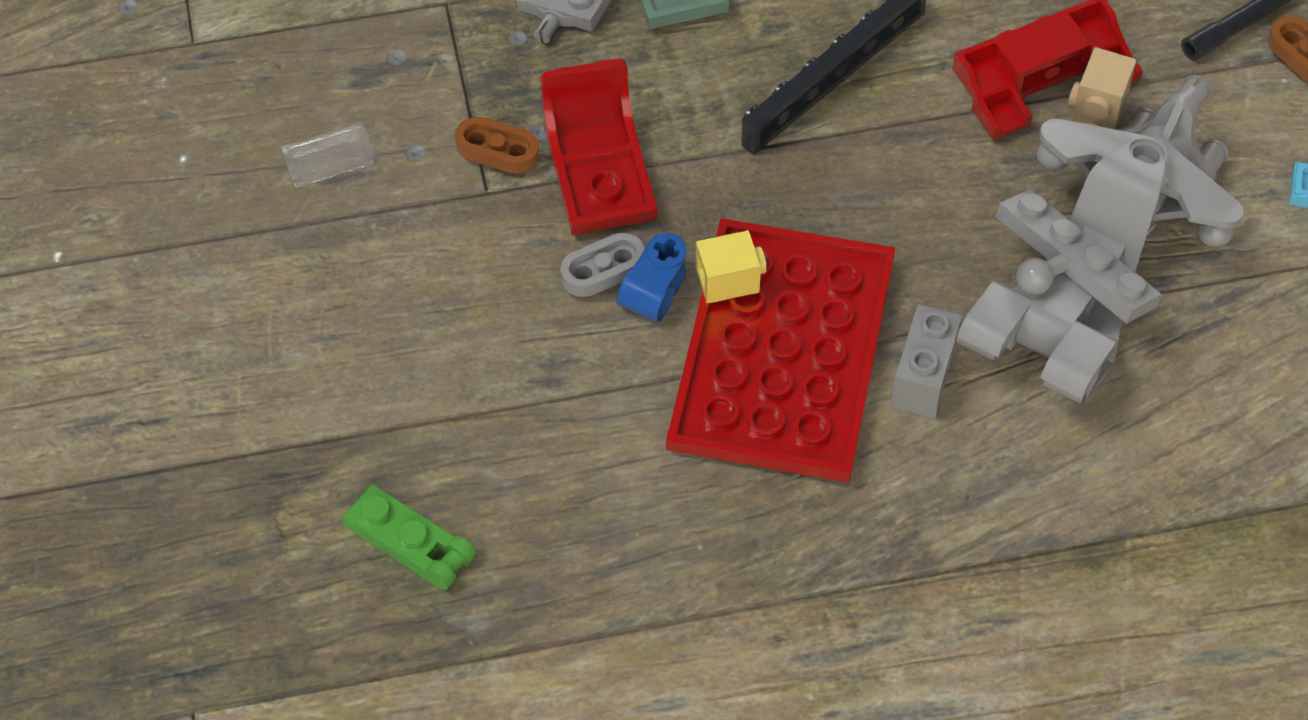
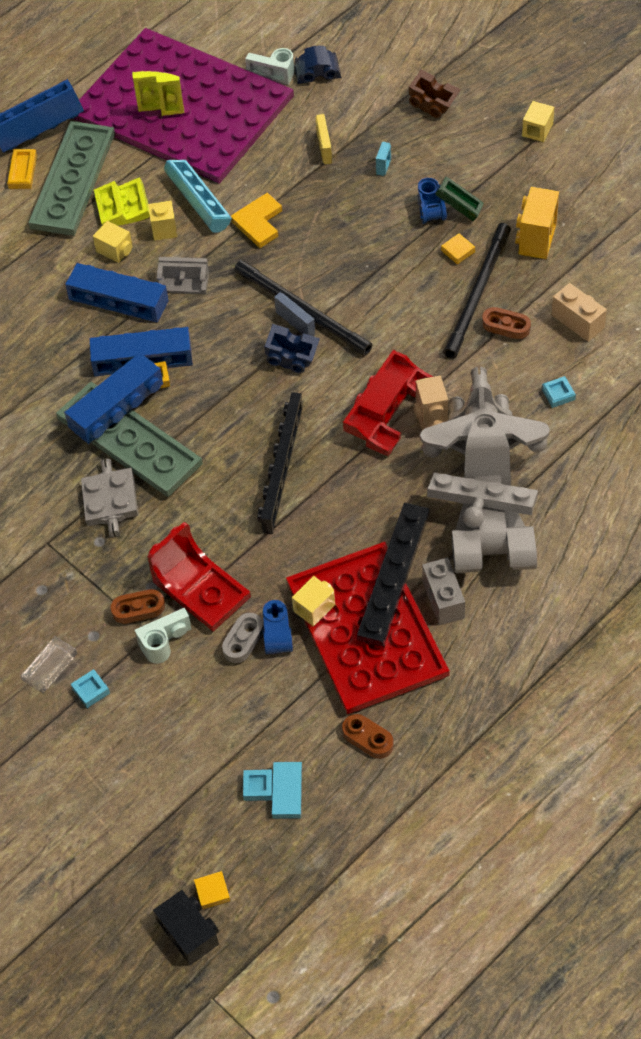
camera: 30 degrees left, 0 degrees up
(230, 594) = (186, 926): none -> black brick
(304, 569) = (212, 890): none -> yellow tile
(356, 215) = (90, 688): none -> medium azure tile
(408, 537) = (252, 840): bright green plate -> none
(473, 470) = (257, 785): none -> medium azure tile
(490, 194) = (160, 632): none -> light aqua plate
(506, 500) = (287, 790): none -> medium azure tile
(670, 492) = (365, 736): none -> dark orange plate
(870, 297) = (393, 574): none -> black plate

